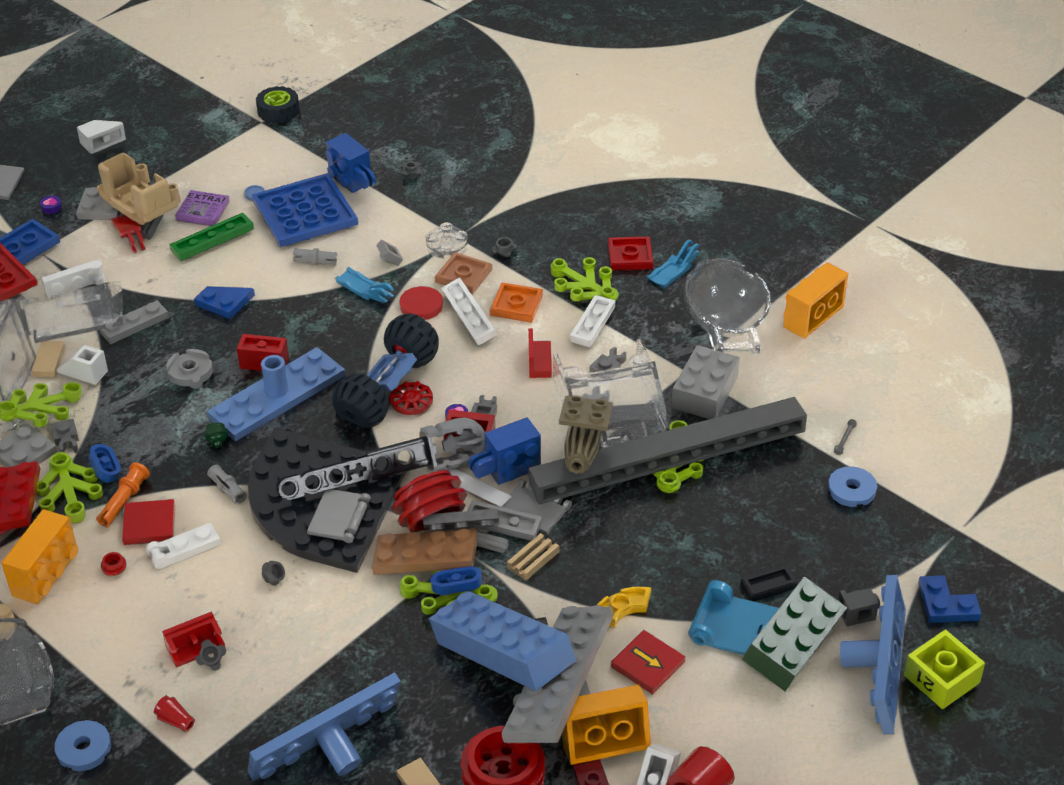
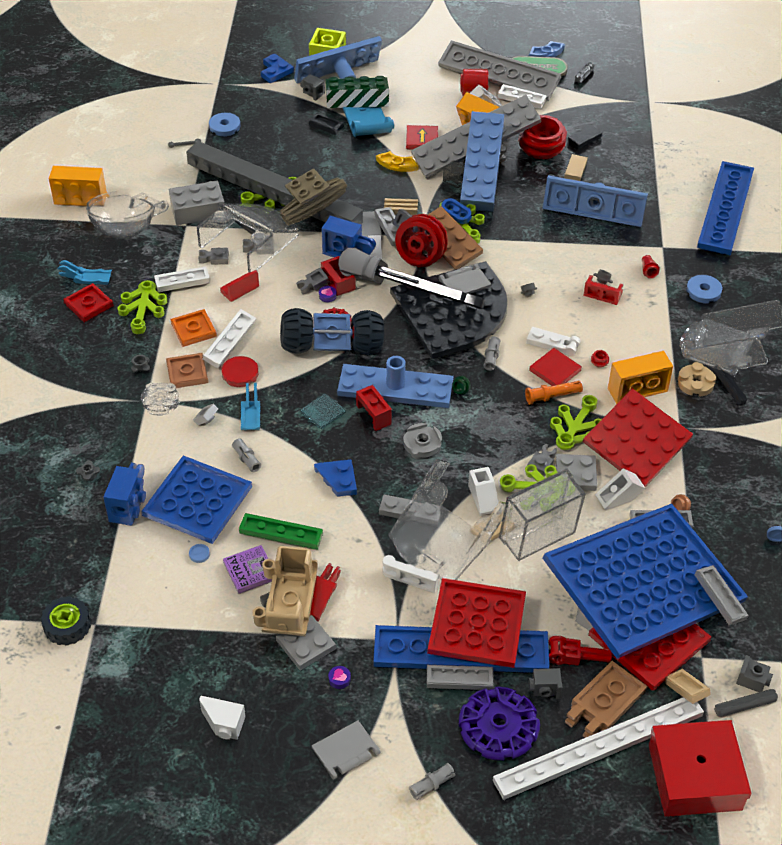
camera: 130 degrees left, 5 degrees up
(104, 463) = (542, 417): blue plate -> none
(309, 332) = (323, 411): none -> clear light blue piece

